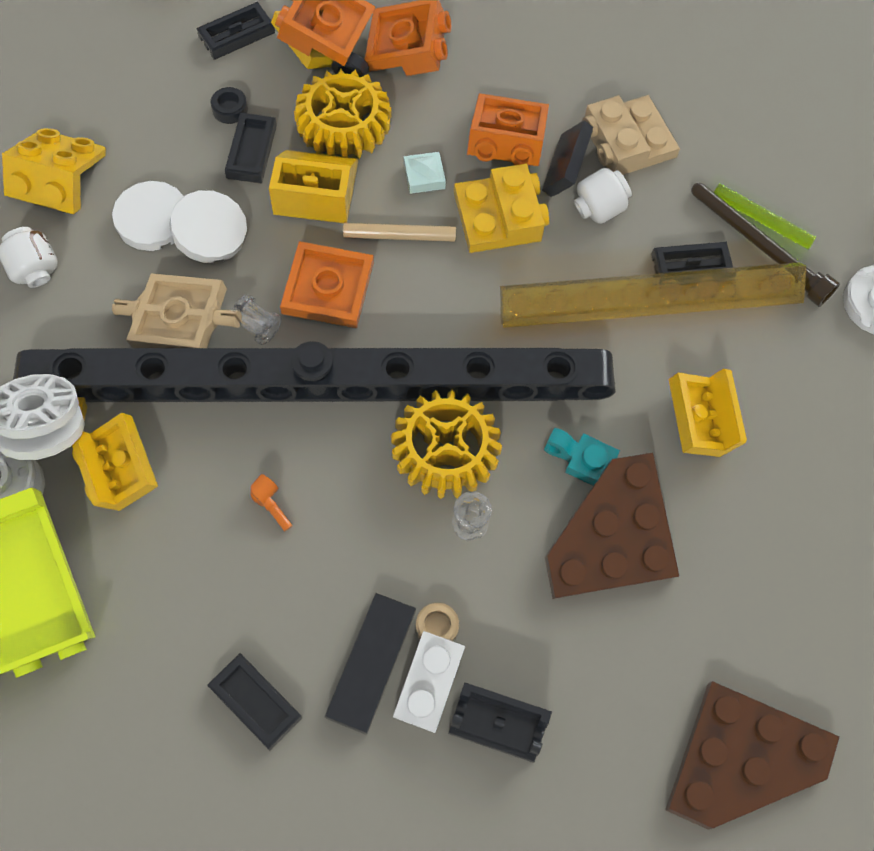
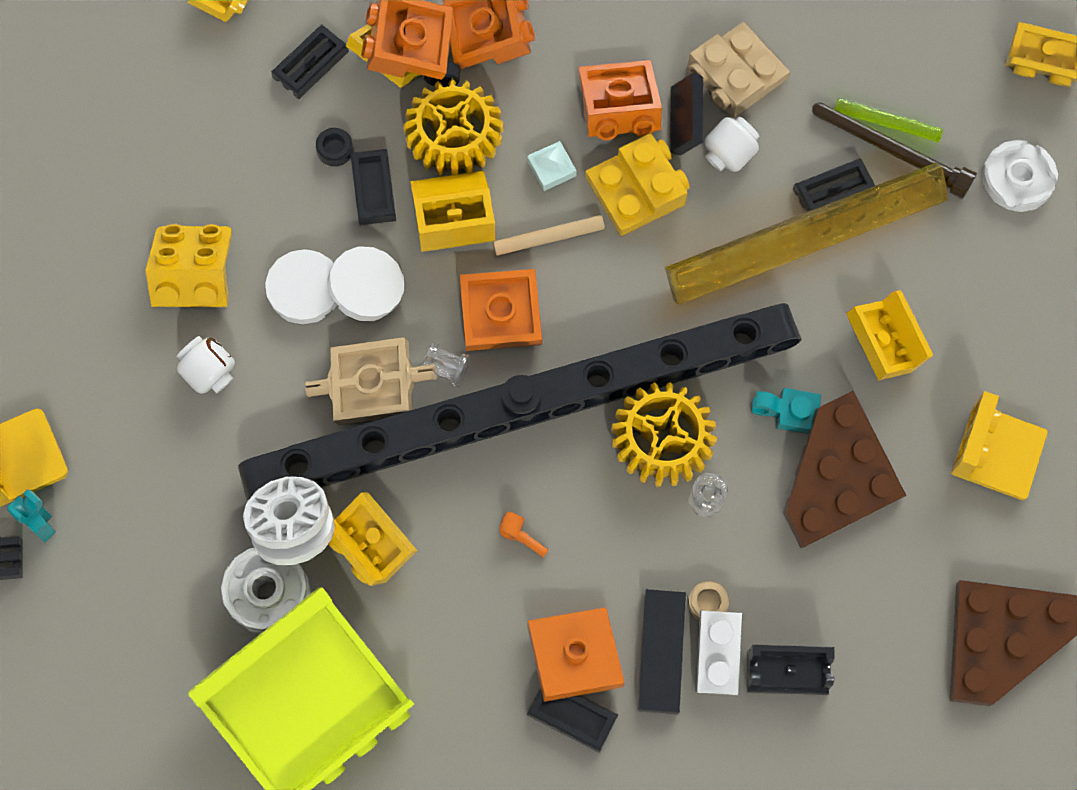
camera: 15 degrees left, 5 degrees up
(278, 638) = (575, 654): none -> orange plate
(791, 558) = (999, 449): none -> yellow bracket

